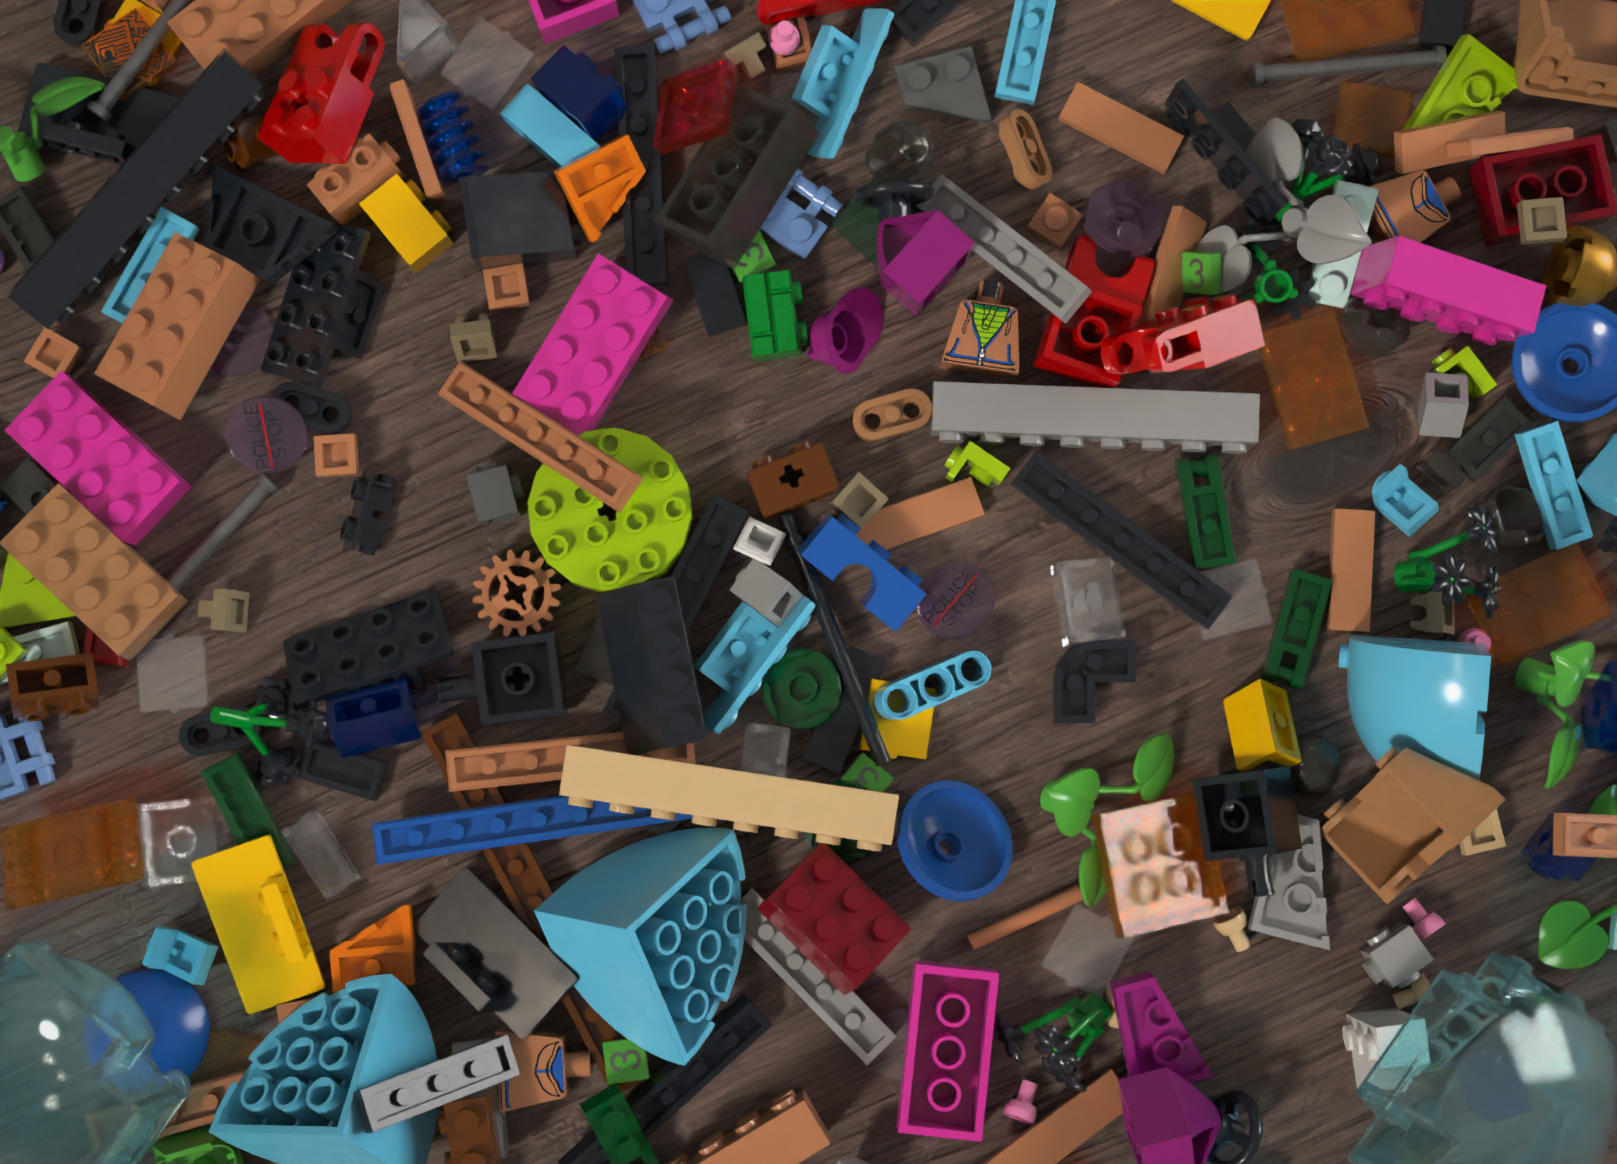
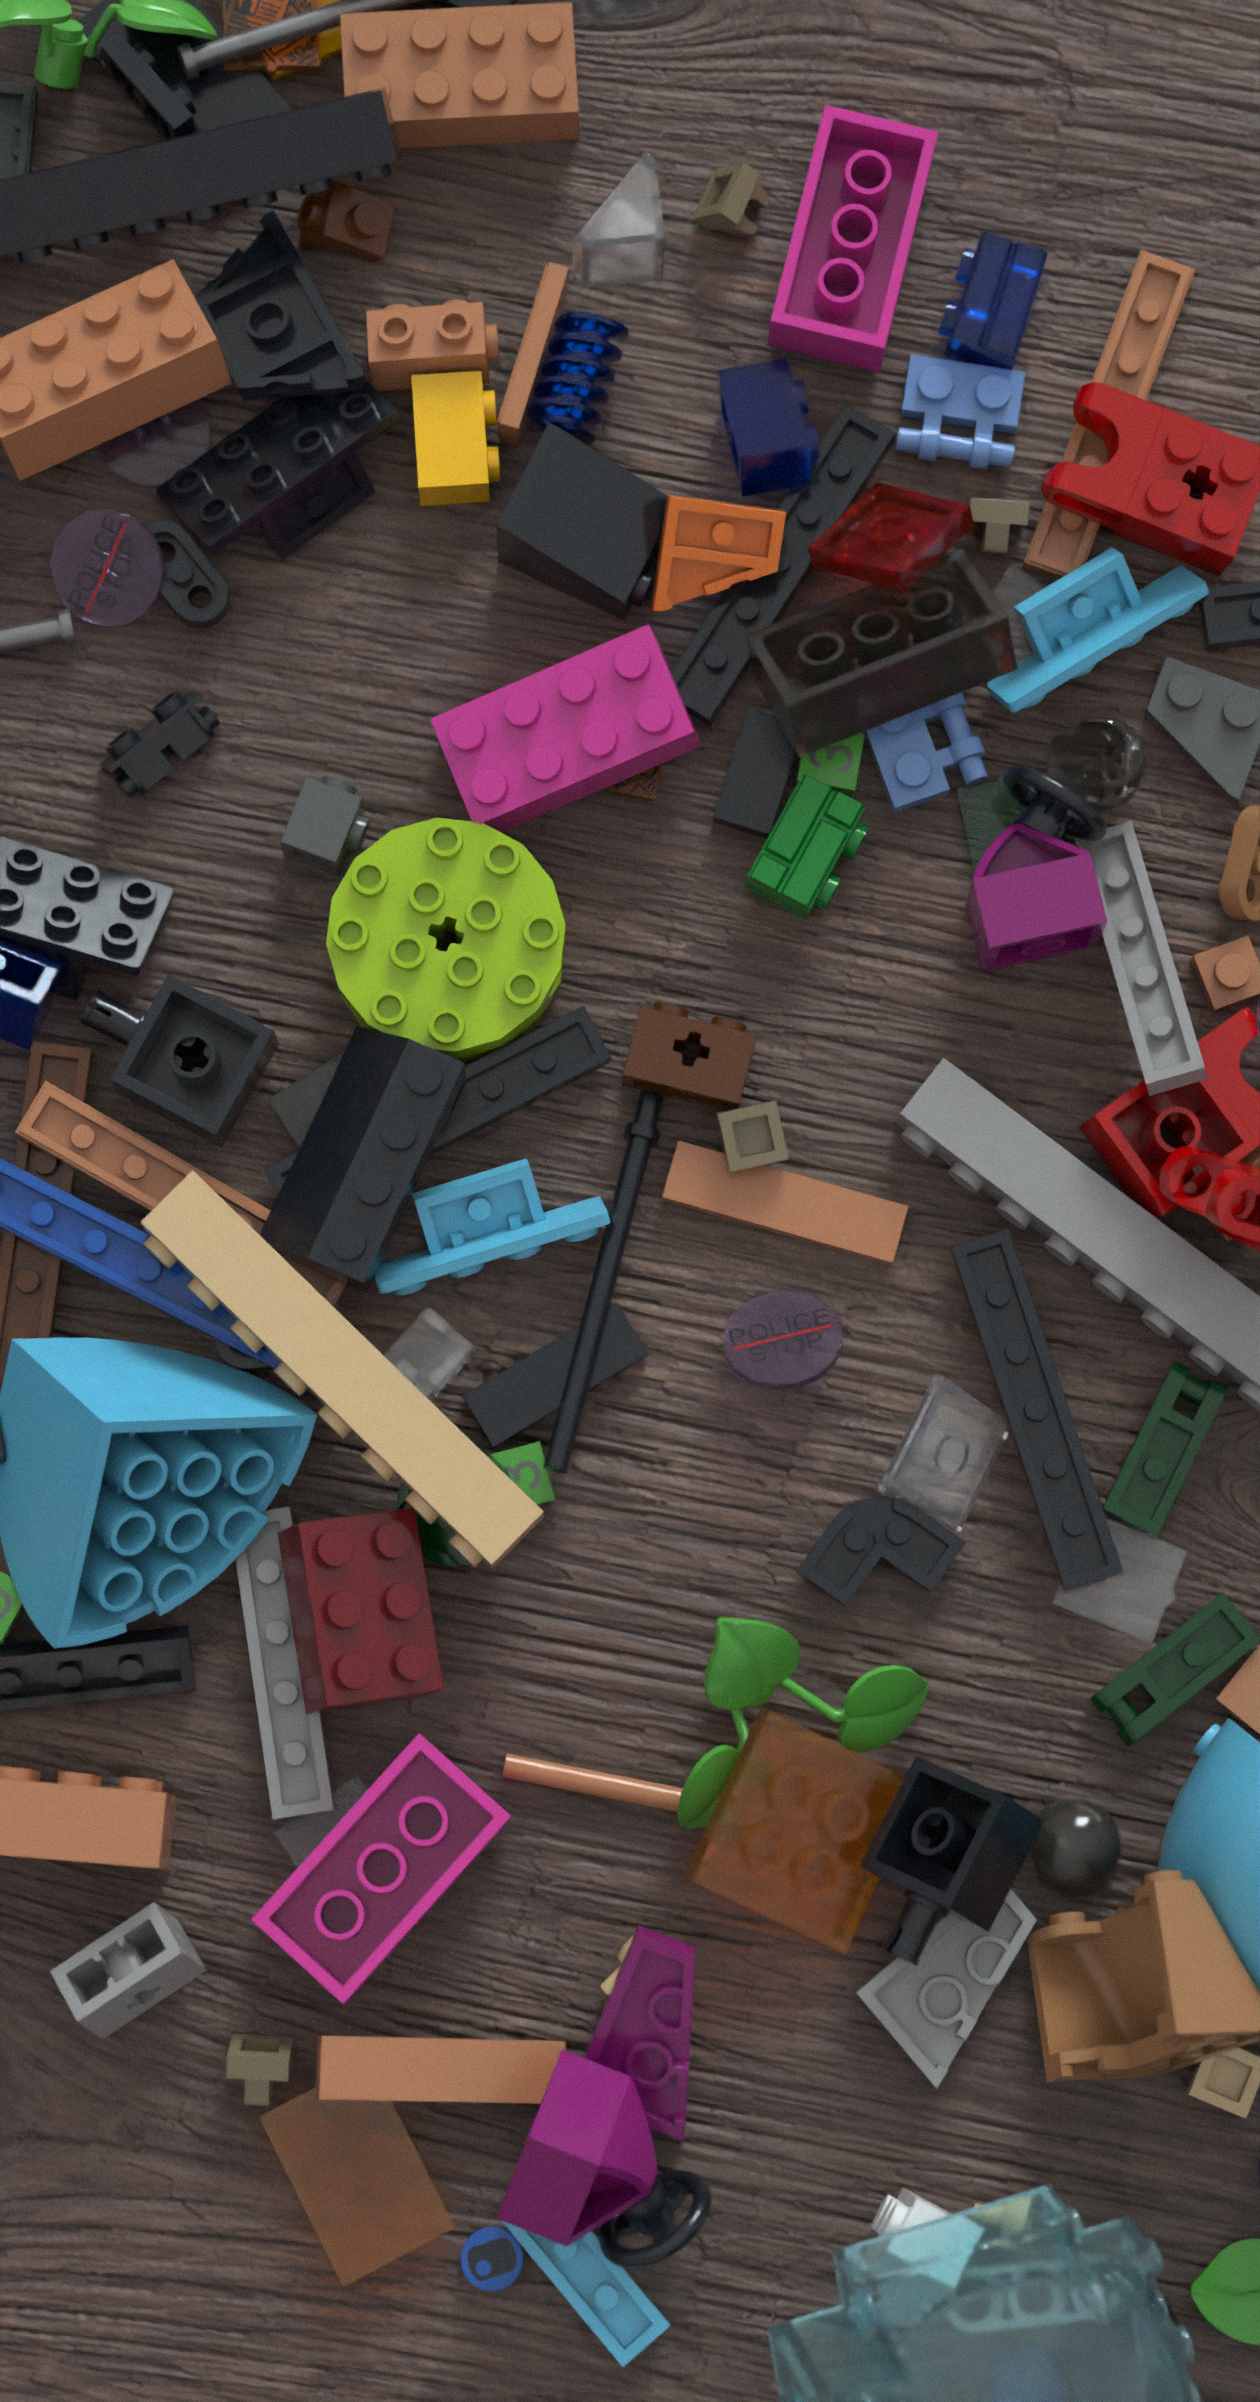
camera: 35 degrees right, 5 degrees down
(144, 262) = (114, 269): medium azure plate -> none
(323, 94) = (461, 221): red brick -> none
(336, 455) = (171, 650): nougat plate -> none
(473, 339) = (430, 627): dark tan tile -> none
(487, 64) = (681, 321): clear piece -> none
(501, 603) = (288, 963): nougat gear -> none
(506, 287) = (514, 594): nougat plate -> none
(541, 437) = (426, 792): nougat tile -> none
(546, 127) = (697, 440): medium azure beam -> none
(760, 541) = (598, 1101): white slope -> none
(766, 592) = (562, 1167): light grey brick -> none
(784, 38) = (1056, 532): bright pink piece -> none
(803, 689) = (522, 1315): dark green tile -> none
(848, 331) = (884, 927): magenta piece -> none
(891, 415) = (867, 1061): medium nougat plate -> none
(892, 591) = (687, 1170): blue arch -> none
(904, 736) = (618, 1433): yellow piece -> none
(950, 680) = (709, 1412): medium azure beam -> none
(969, 829) = (600, 1618): blue dish -> none
(984, 335) = (1043, 1048): torso -> none
(984, 466) = (933, 1202): lime bracket -> none
(1021, 1107) = (422, 2009): bright pink piece -> none
(1086, 951) = (639, 1878): clear piece -> none
(1086, 1018) = (578, 1954): plant -> none
(1232, 925) = (839, 1972): tan piece -> none
(1261, 726) = (1048, 1754): yellow panel -> none
(1395, 956) = (1011, 2154): light grey brick -> none
(1424, 923) = (1079, 2146): bright pink piece -> none

